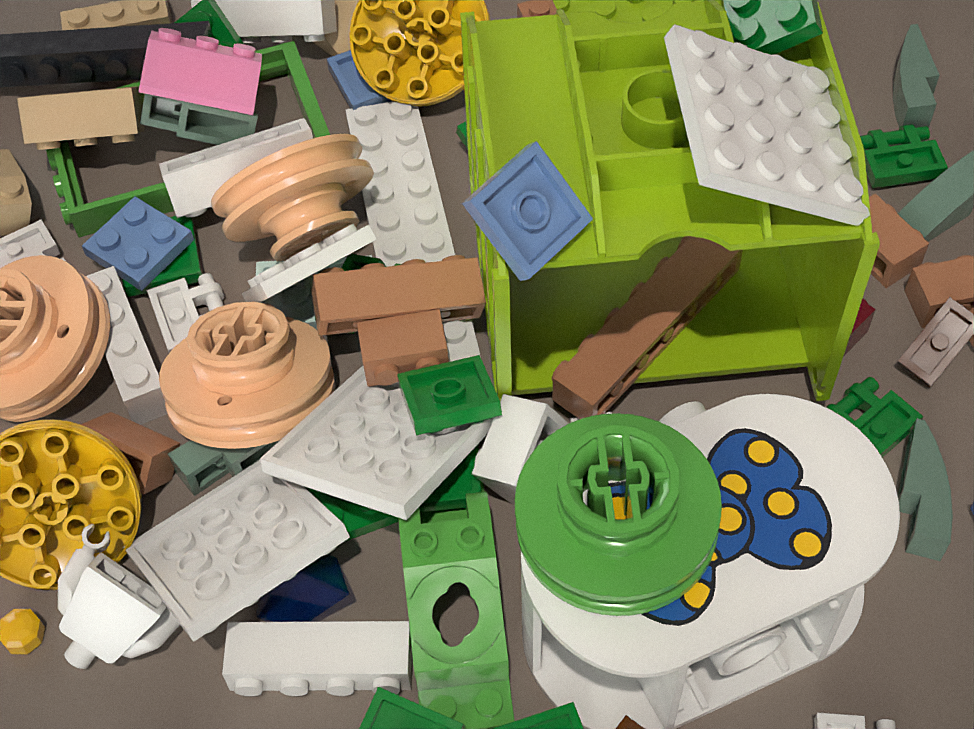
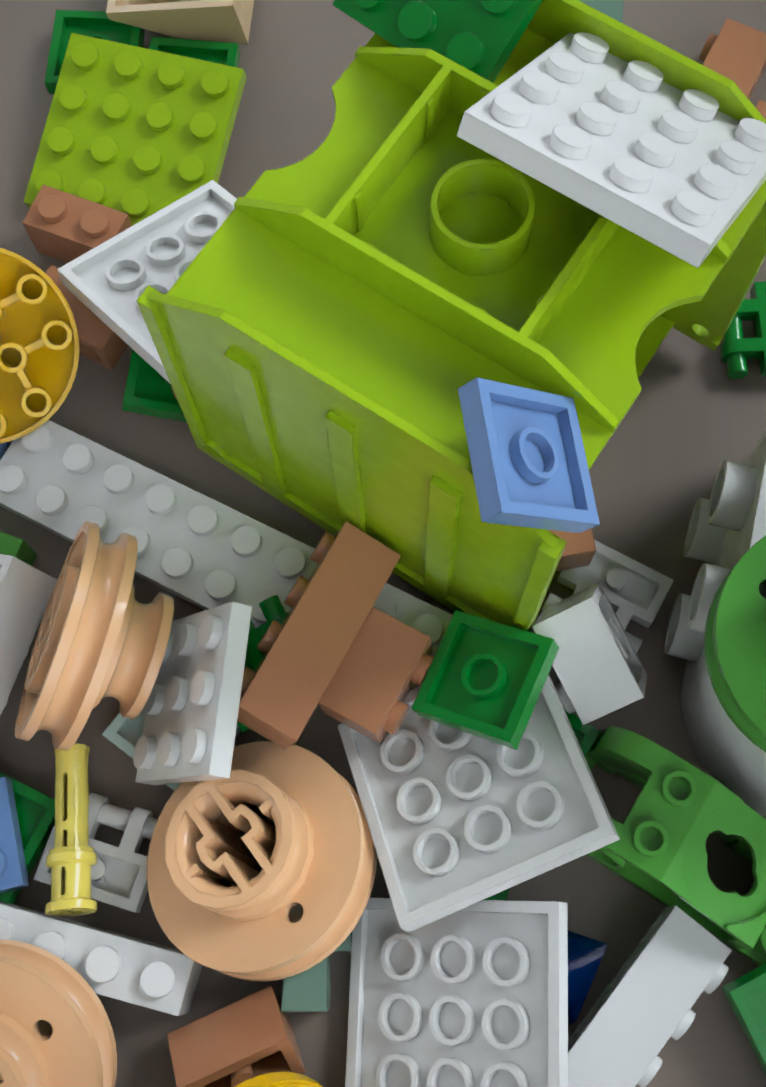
camera: 50 degrees left, 15 degrees up
(173, 291) = (71, 854): none -> light yellow pin

